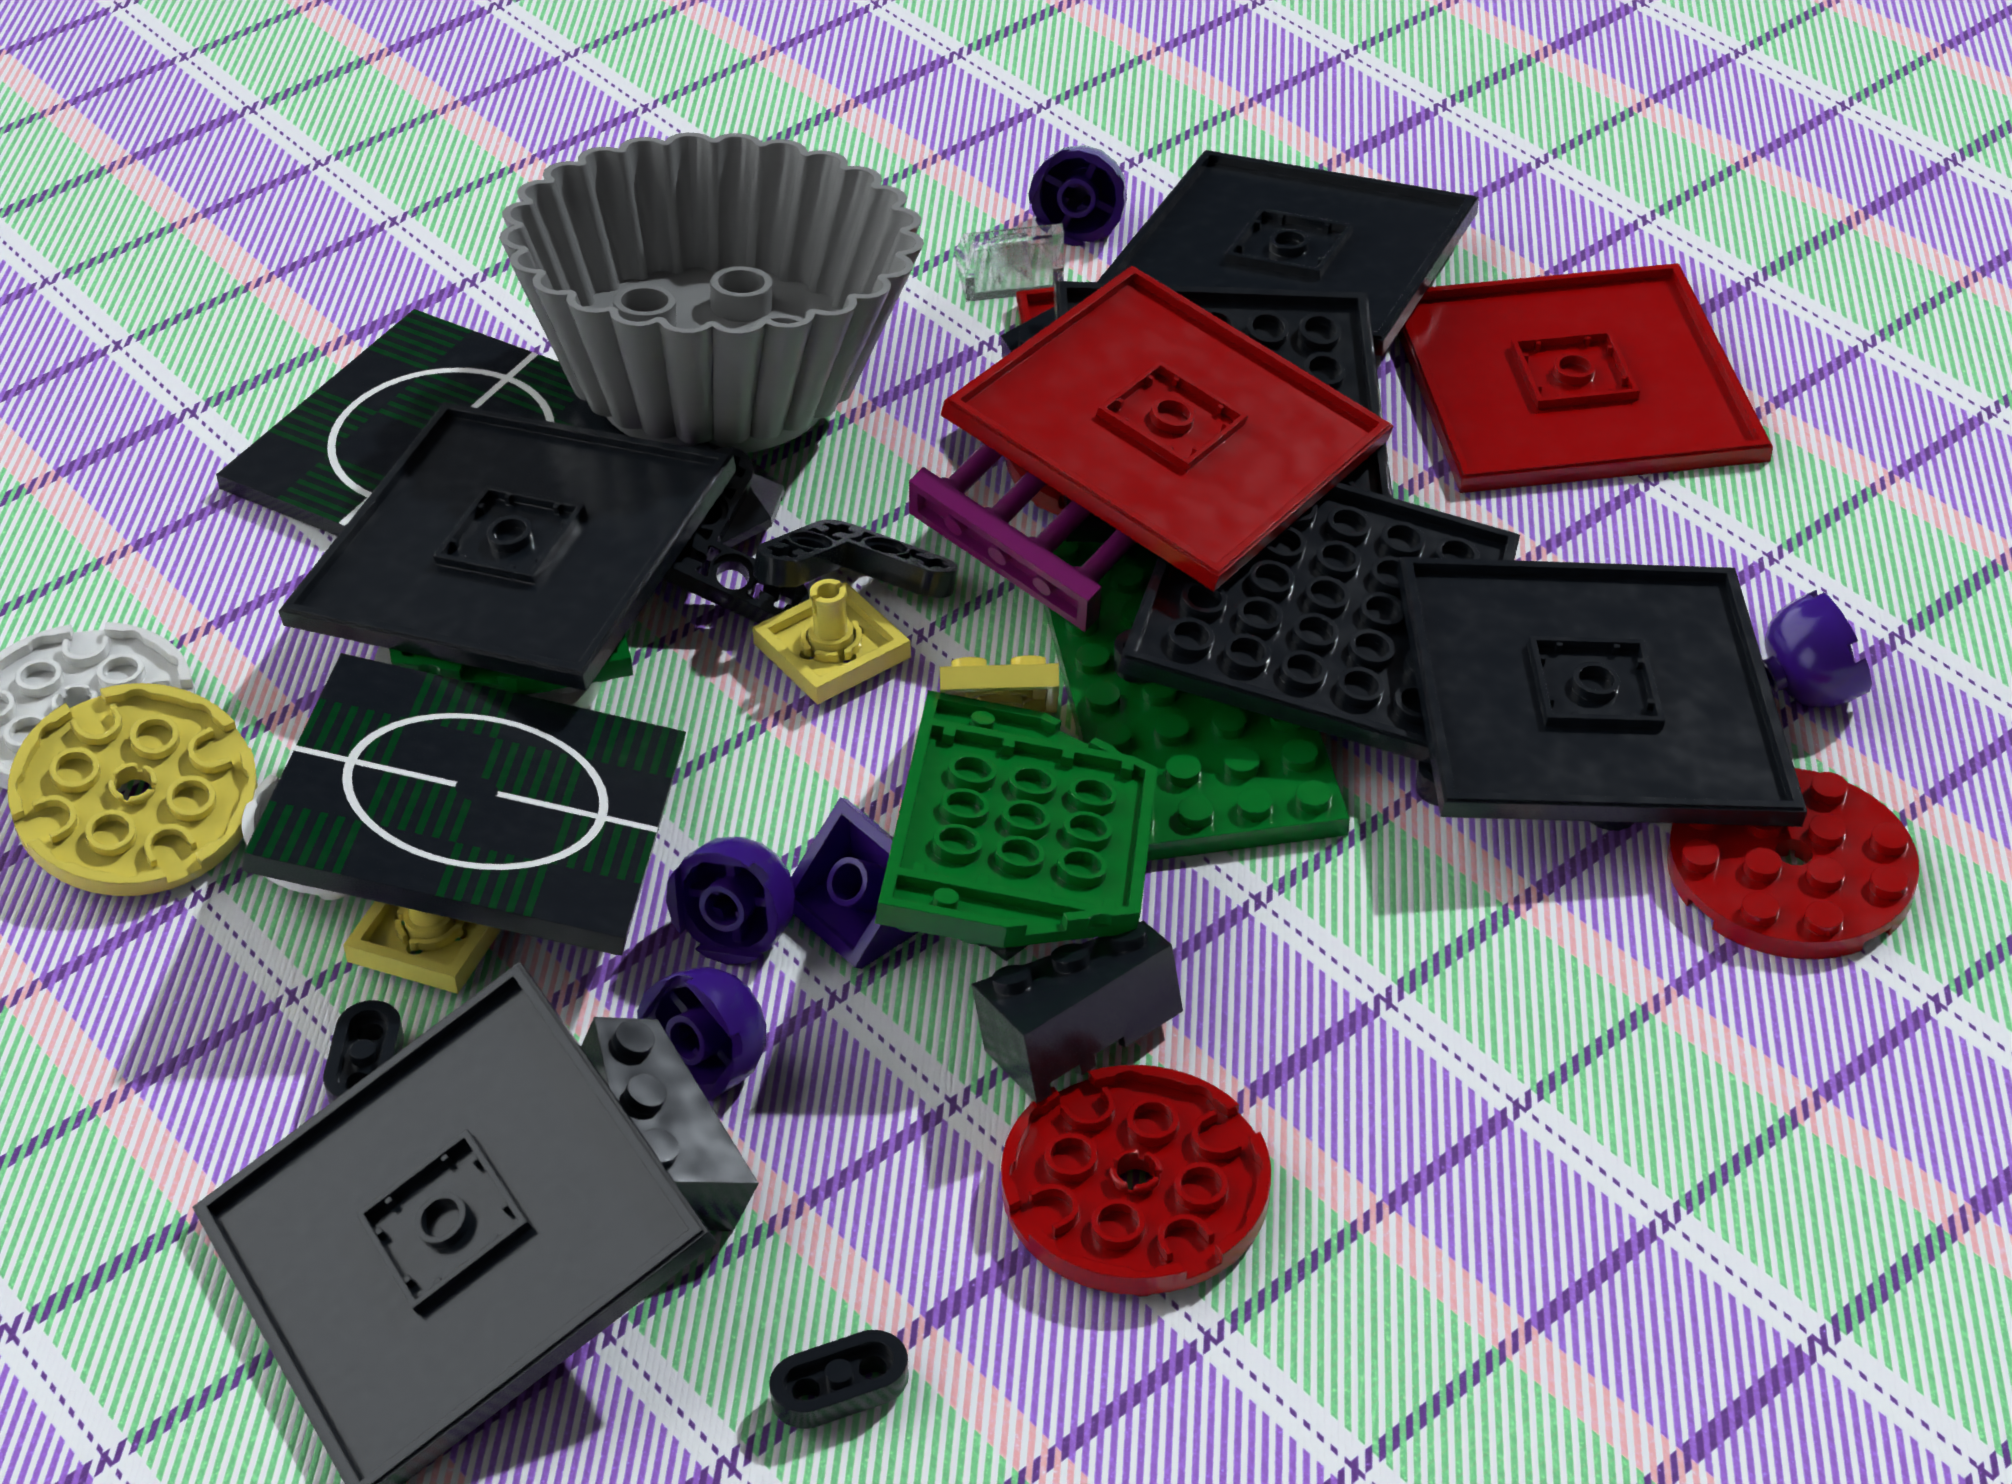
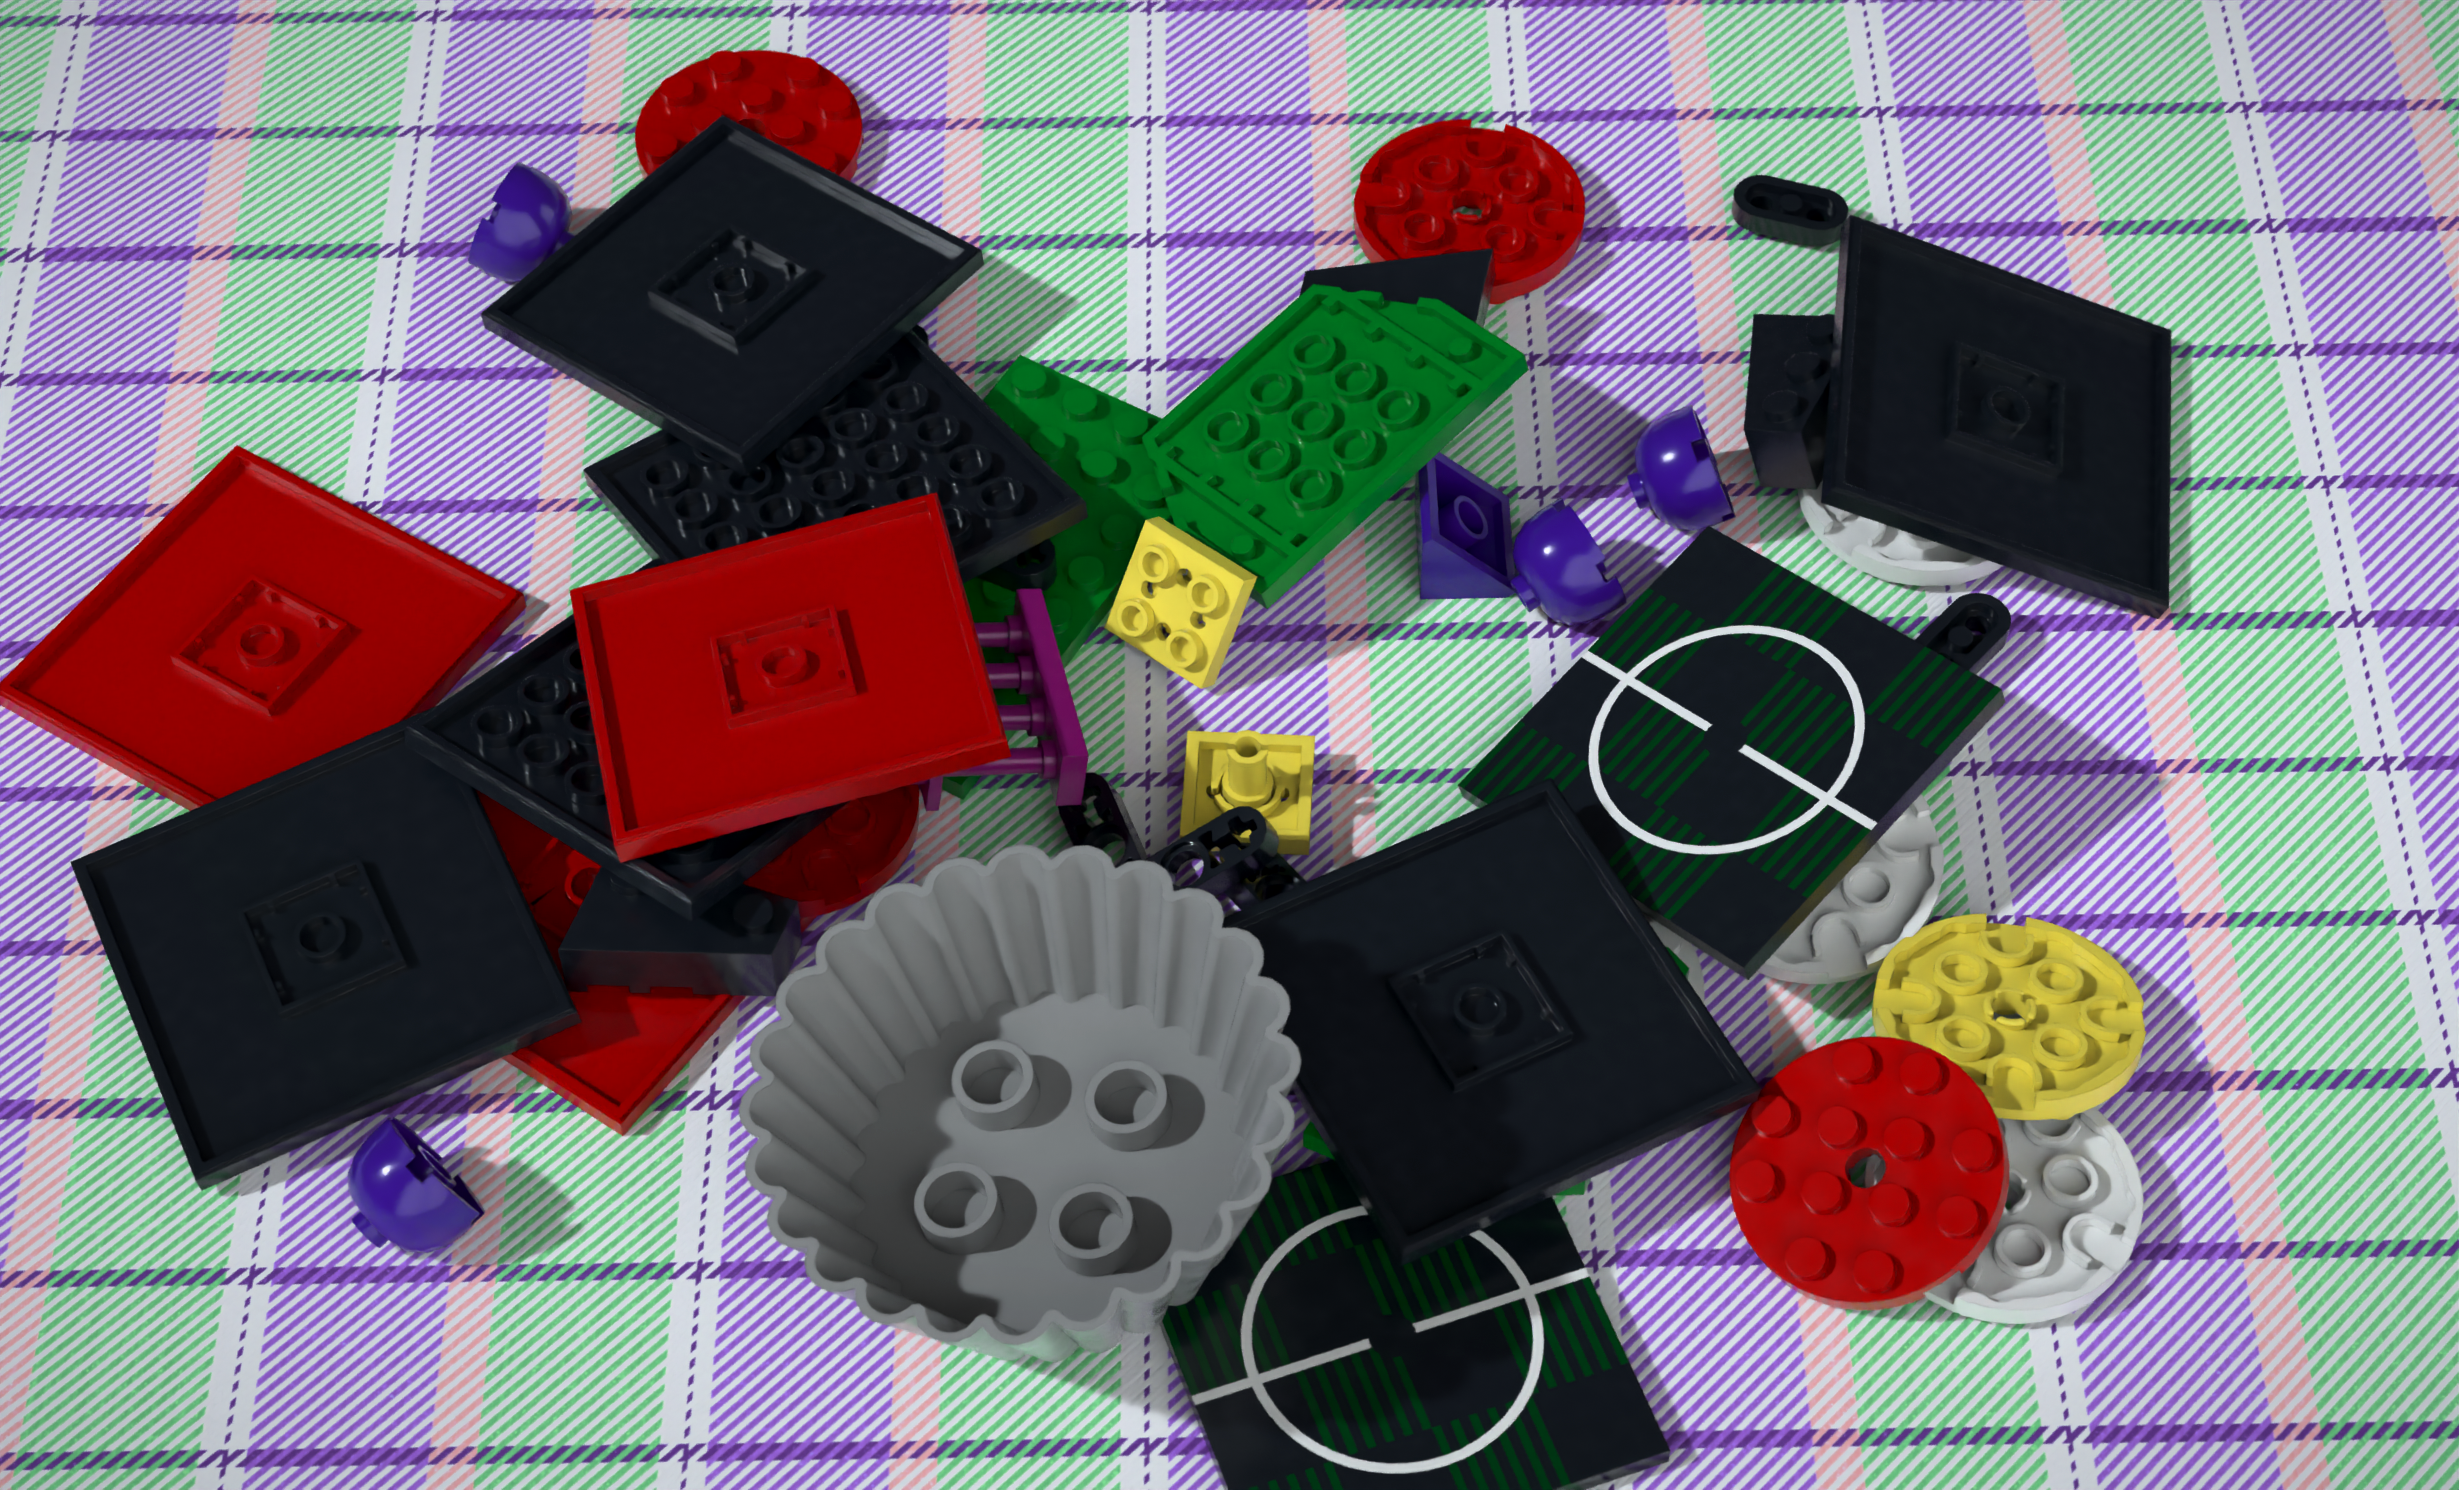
camera: 140 degrees left, 10 degrees up
(173, 635) = (1884, 1240): none -> red plate
(1010, 261) = (577, 1166): clear slope -> none

